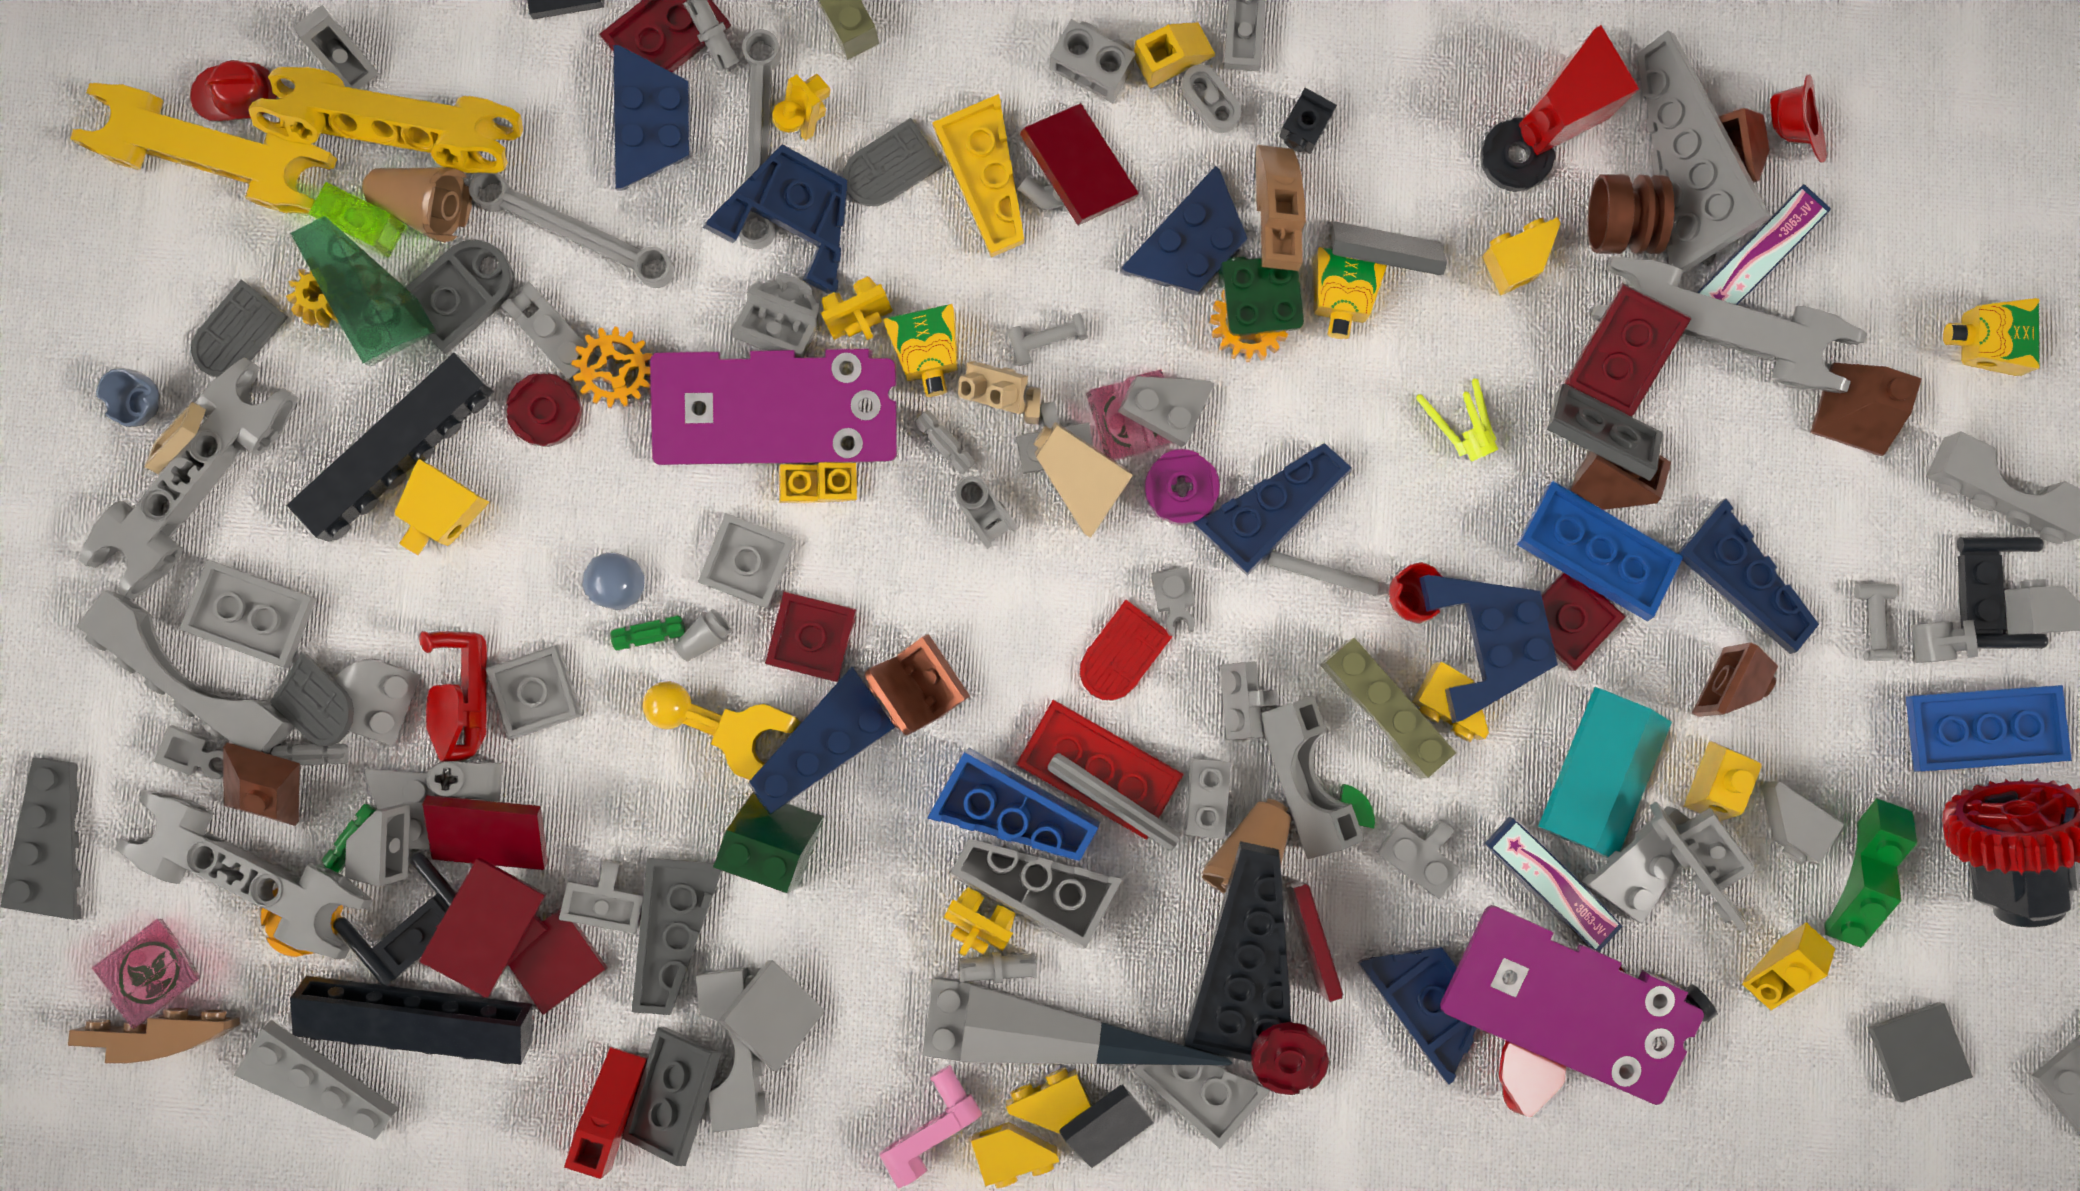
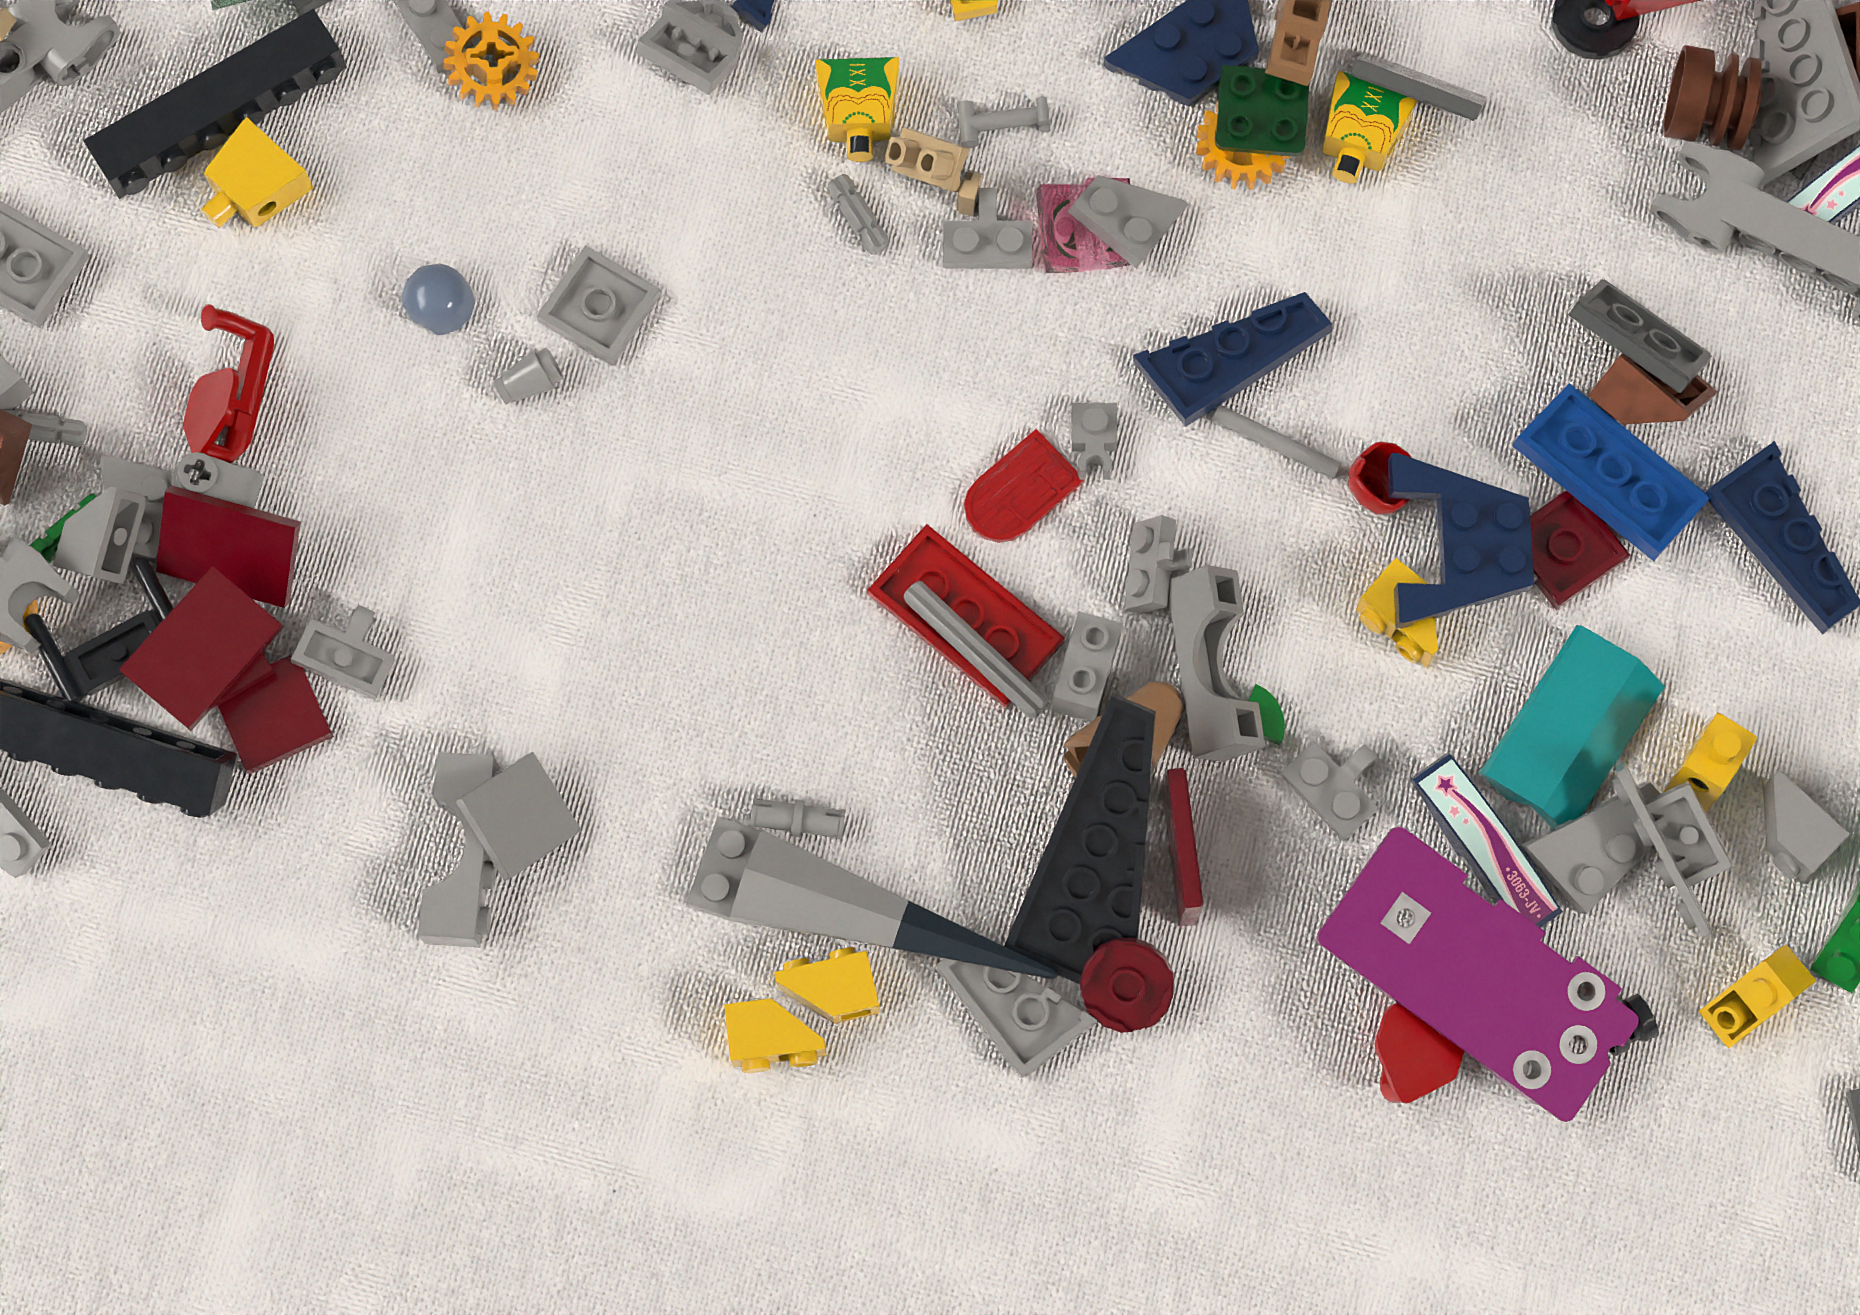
camera: 10 degrees right, 10 degrees down
(314, 703) = (62, 367): dark grey window -> none
(379, 697) = (130, 376): light grey slope -> none
(534, 692) = (317, 406): light grey tile -> none
(543, 409) = (400, 96): dark red tile -> none
(606, 1114) = (295, 896): red slope -> none
(647, 632) = (465, 363): green axle -> none
(671, 921) = (422, 691): dark grey wing -> none
(671, 1096) = (378, 889): dark grey tile -> none
(736, 733) = (540, 490): yellow piece -> none
(769, 847) = (555, 621): dark green slope -> none
(771, 408) = (666, 138): magenta piece -> none
(811, 637) = (655, 403): dark red tile -> none
(817, 483) = (699, 234): yellow slope -> none
(827, 738) = (650, 516): dark blue wing -> none
(858, 312) = (785, 50): yellow hips -> none
(903, 1156) = (639, 1013): bright pink beam -> none
(916, 686) = (770, 475): copper bracket -> none
(964, 915) = (782, 765): yellow hips -> none
(984, 512) = (890, 301): light grey piece -> none
(1005, 805) = (845, 629): blue wedge -> none
(1046, 892) = (871, 737): light grey wedge -> none
(1081, 475) = (1010, 271): tan slope -> none
(1106, 1126) = (890, 1019): black tile -> none
(1194, 470) = (1109, 294): magenta plate -> none
(1389, 707) = (1343, 631): olive arch -> none
(1414, 988) = (1311, 980): dark blue wing -> none
(1480, 439) = (1490, 321): neon yellow plant -> none
(1522, 257) = (1576, 126): yellow slope -> none
(1627, 349) = (1683, 249): dark red tile -> none
(1737, 680) = (1754, 649): copper slope -> none

